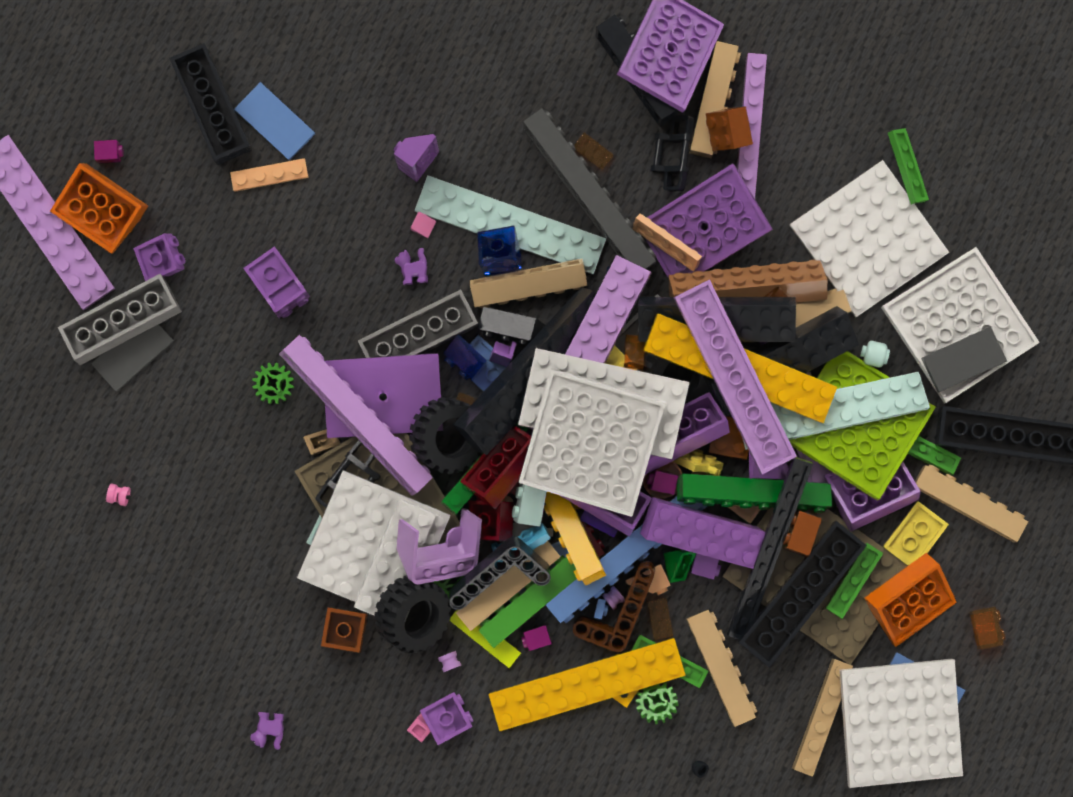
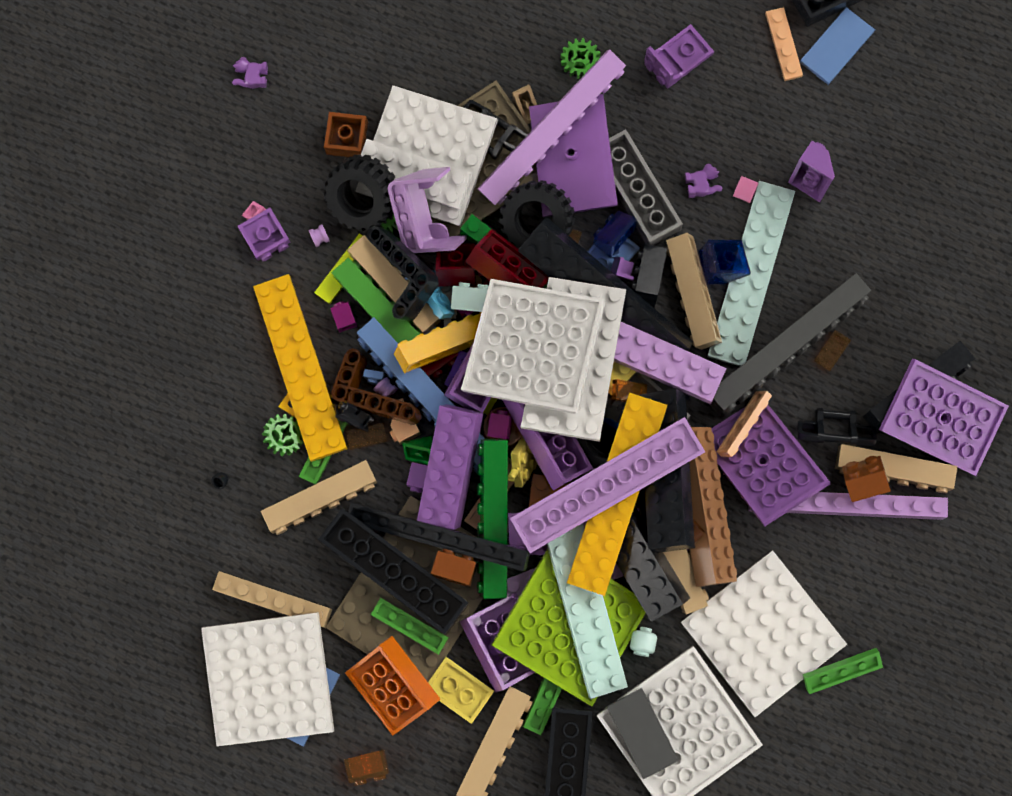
camera: 90 degrees right, 5 degrees down
(642, 631) = (346, 413): none -> black hinge

